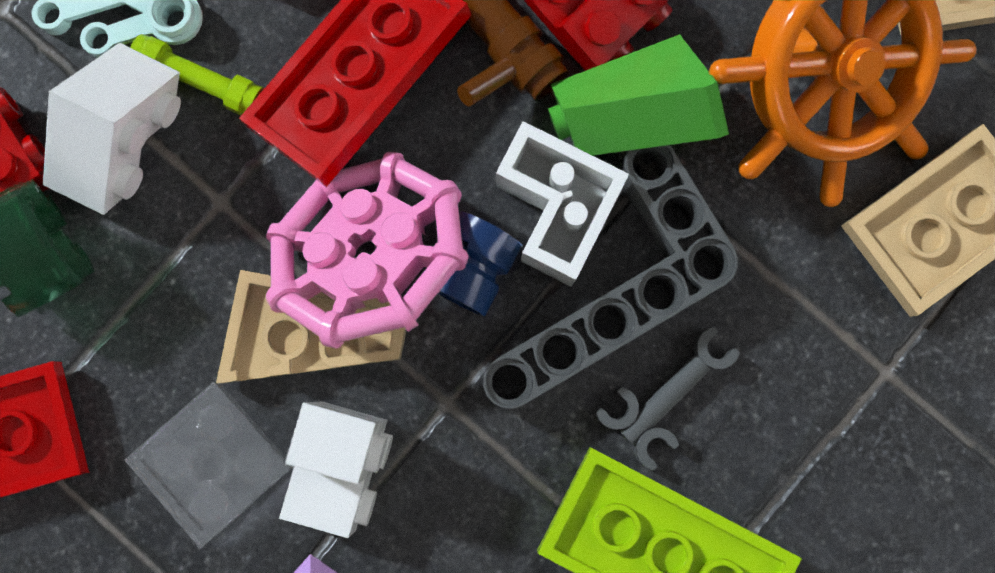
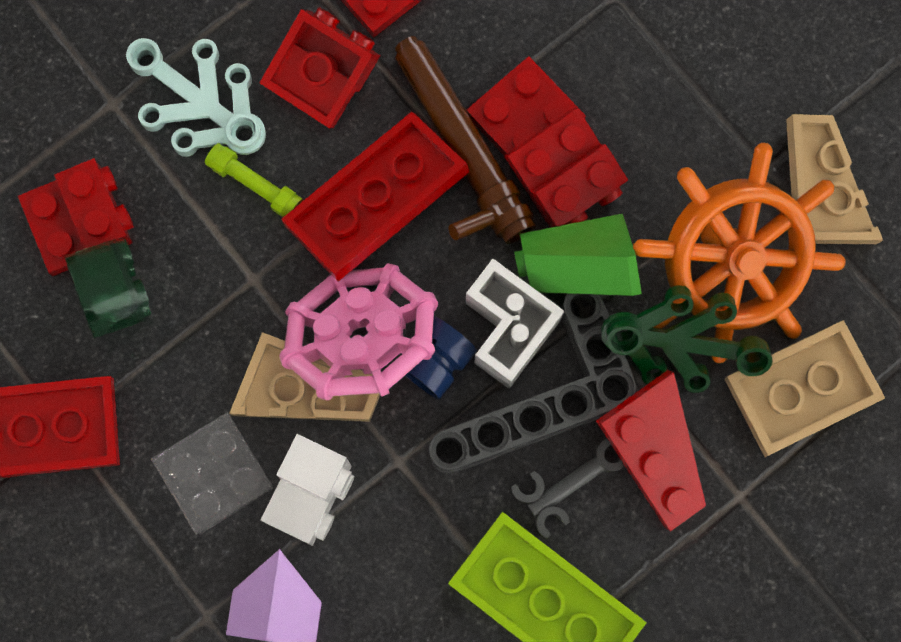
camera: 10 degrees right, 5 degrees down
(101, 124) = (182, 208): white brick -> none
(718, 187) = (683, 339): none -> dark green plant
(776, 332) = (657, 449): none -> red wing

